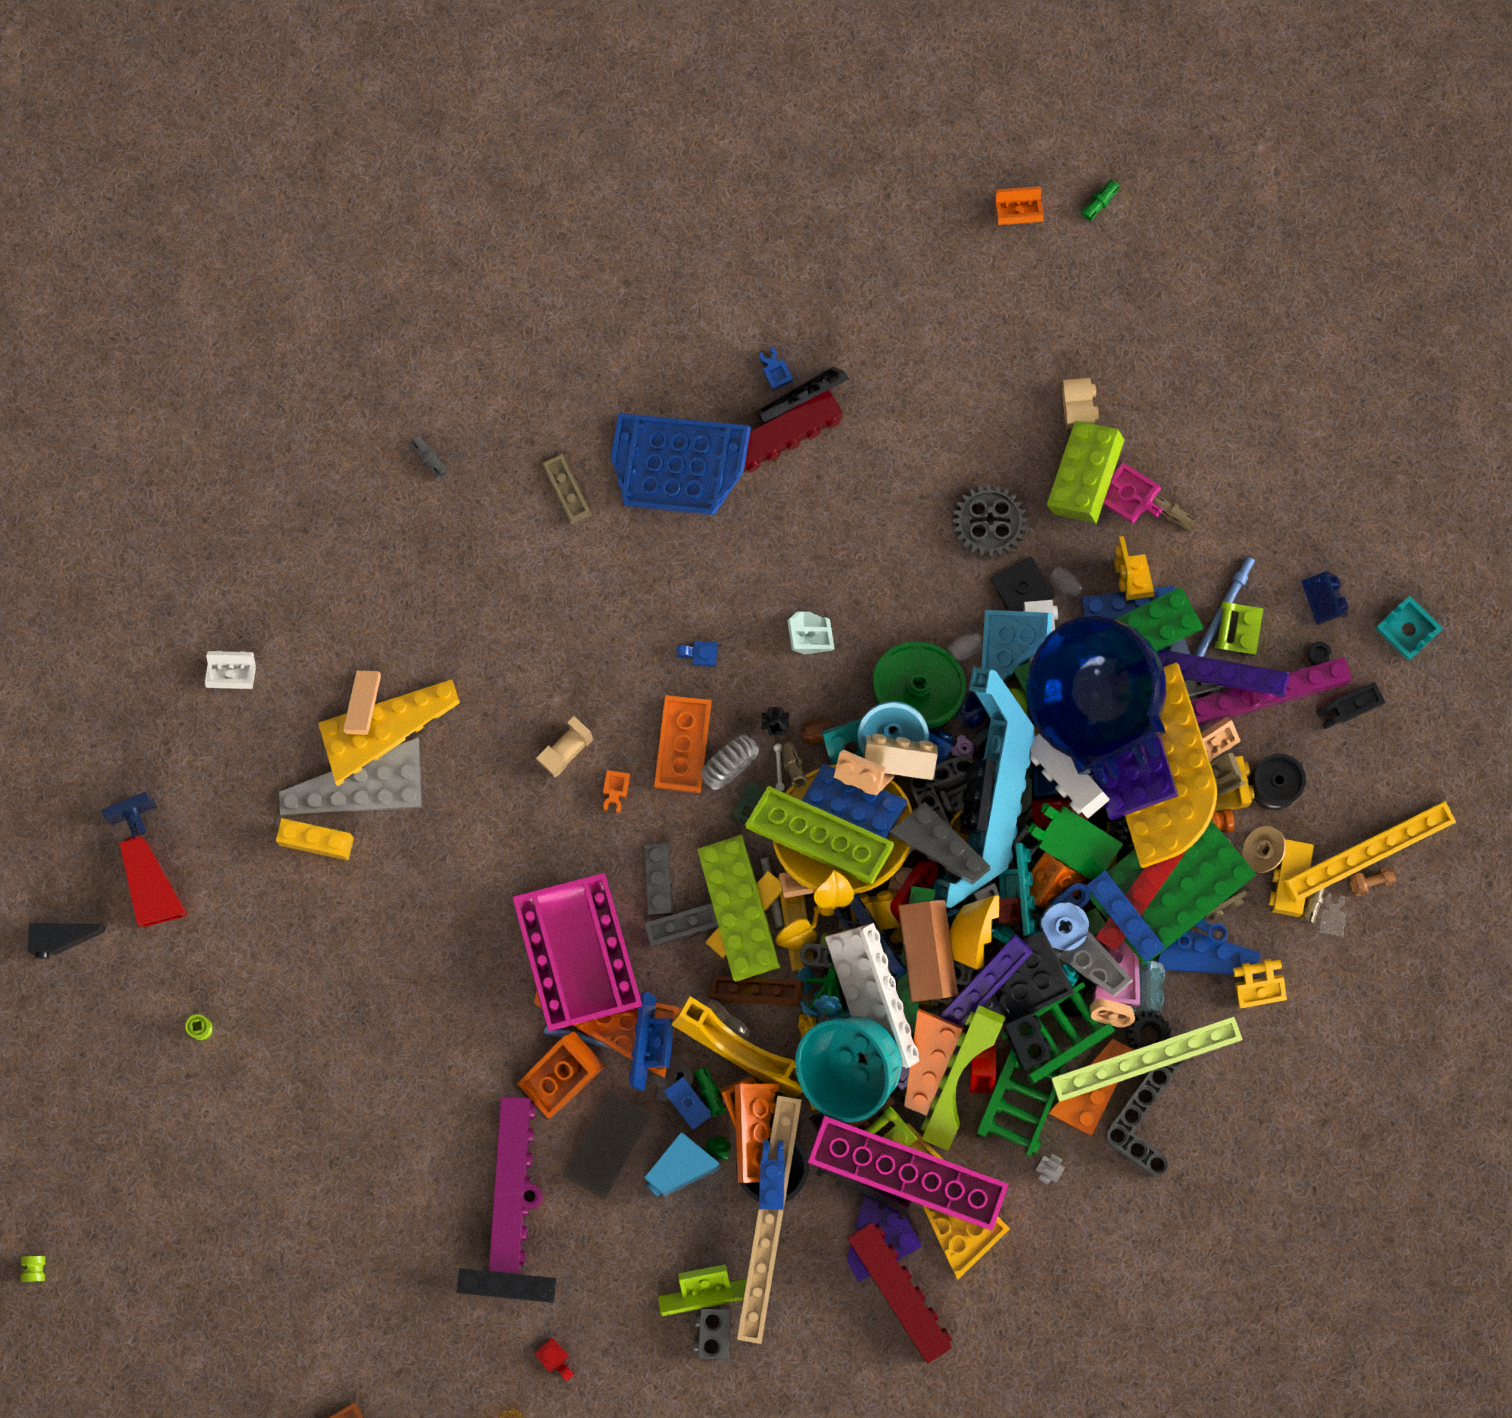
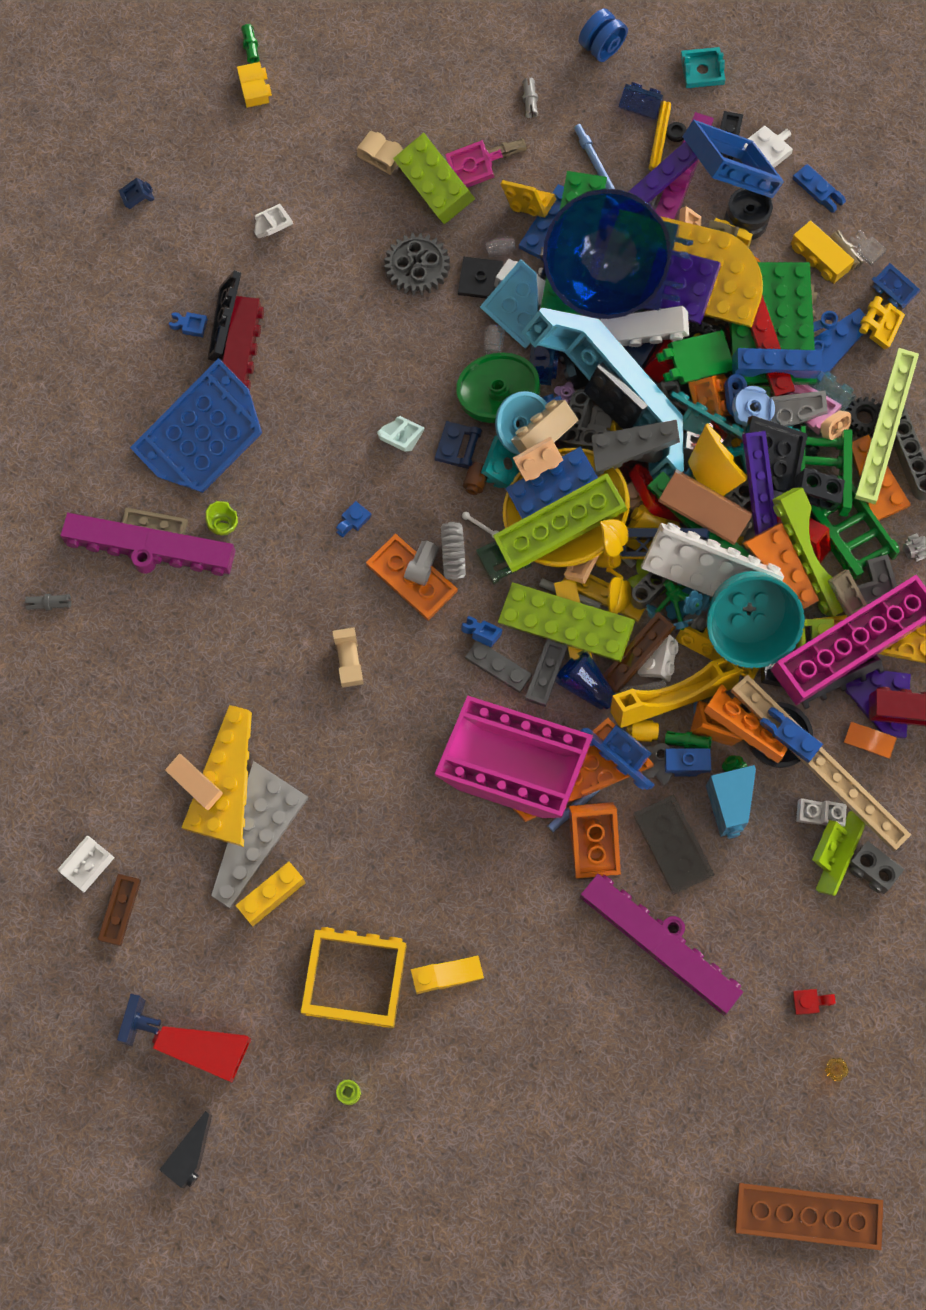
camera: 55 degrees left, 5 degrees down
(213, 727) = (119, 910): none -> reddish brown plate
(336, 951) = (348, 1015): none -> yellow window
(353, 1035) = (446, 974): none -> yellow slope
(506, 1285) = (732, 994): black plate -> none
(542, 498) = (148, 544): none -> magenta hinge
(604, 538) = (219, 512): none -> lime hair
(615, 786) = (406, 645): orange plate -> none
(678, 844) = (484, 632): none -> blue plate
(690, 745) = (420, 568): none -> light grey piece
(690, 1048) = (644, 730): none -> yellow brick
(696, 963) = (586, 681): none -> clear blue cone
(731, 1253) = (820, 812): none -> white slope
(767, 1017) = (661, 661): none -> white bracket
(775, 720) = (446, 501): black gear -> none
(793, 764) = (489, 510): dark tan pin -> none
(830, 1251) = (870, 740): none -> orange slope
(838, 683) = (451, 443): none -> dark blue plate
(866, 222) = (136, 192): none -> dark blue bracket
(932, 362) = (271, 221): none -> white slope
(947, 1135) = (847, 592): none -> dark tan plate
(989, 1161) = (881, 579): none -> dark grey plate
(1019, 205) = (210, 92): orange bracket -> none
(1058, 236) = (253, 84): none -> yellow brick
(1246, 629) = (624, 161): lime plate -> none
(1247, 493) = (530, 97): none -> light grey pin
(1258, 843) = (784, 245): tan dish -> none
(1301, 642) = (660, 135): none -> yellow axle
(1307, 777) = (753, 175): none -> blue window
(1308, 970) = (896, 286): none -> blue bracket
(1360, 885) = (858, 216): medium nougat bar -> none
(1362, 512) = (603, 35): none -> blue wheel
(1363, 749) = (772, 145): none -> white plate
(1364, 819) = (818, 188): none -> blue hinge
(1369, 852) = (840, 193): yellow tile -> none

